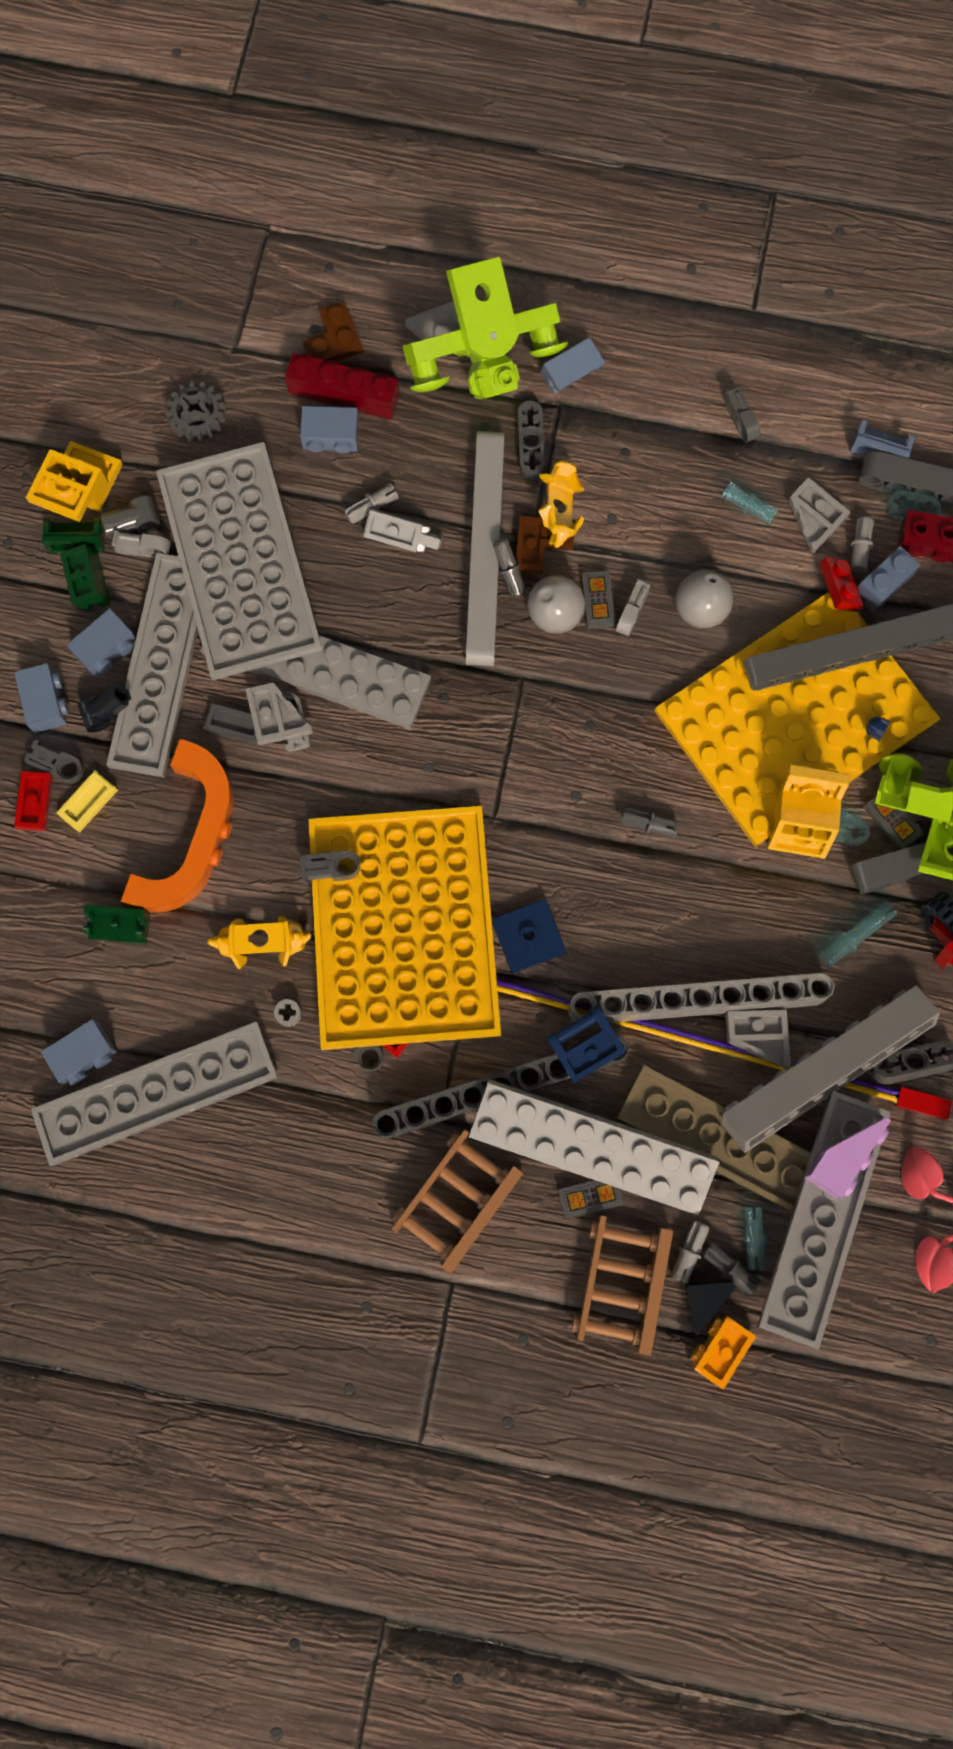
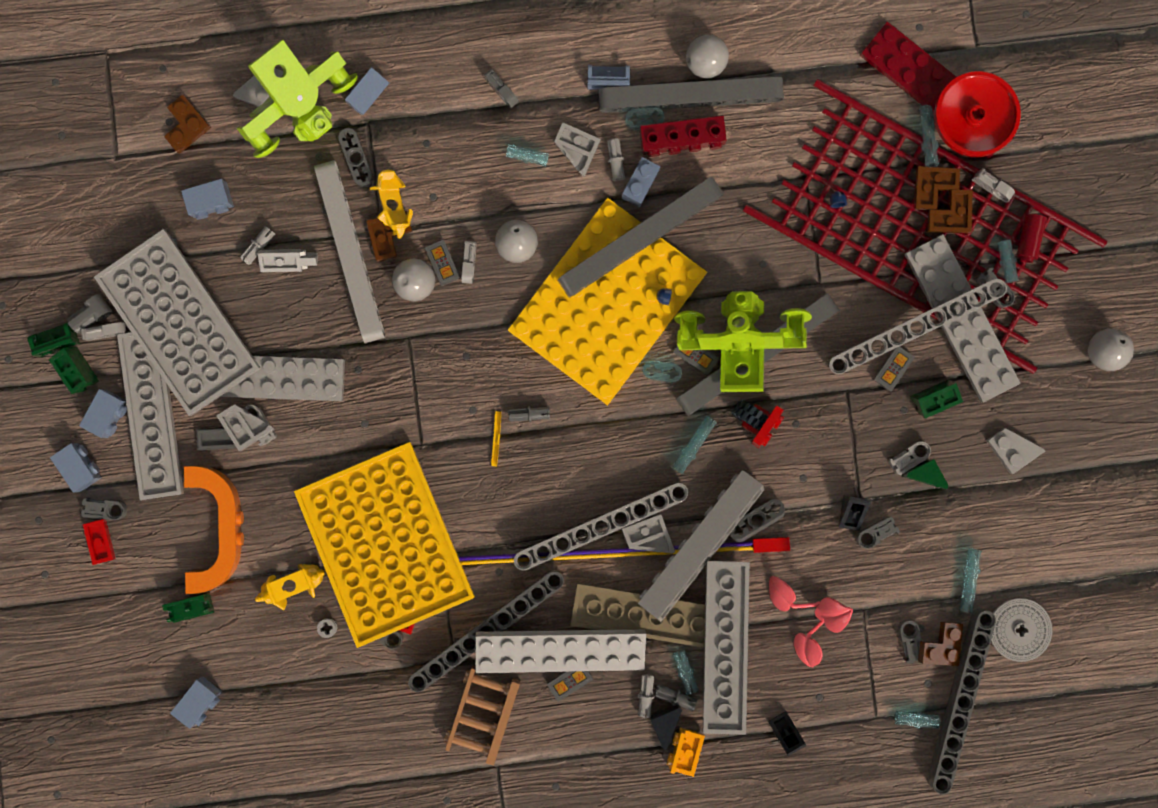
camera: 20 degrees left, 10 degrees up
(74, 481) = (38, 302): yellow bracket -> none
(87, 801) = (136, 528): light yellow tile -> none
(99, 709) = (120, 462): black piece -> none
(154, 1093) = (257, 712): light grey plate -> none
(195, 413) = (103, 226): dark grey gear -> none
(326, 866) = (317, 522): dark grey piece -> none
(342, 385) = (205, 162): dark red brick -> none
(509, 568) = (371, 263): dark grey axle -> none
(528, 936) = (472, 521): dark blue plate -> none
(591, 1052) = (537, 592): dark blue plate -> none
(594, 842) = (496, 439): none -> yellow piece
(647, 1304) = (628, 740): medium nougat fence -> none
(808, 811) = (634, 374): yellow bracket -> none
(840, 1163) = (724, 610): lavender slope -> none
(841, 584) = (609, 196): red plate -> none
(872, 1373) = (787, 733): none -> black slope

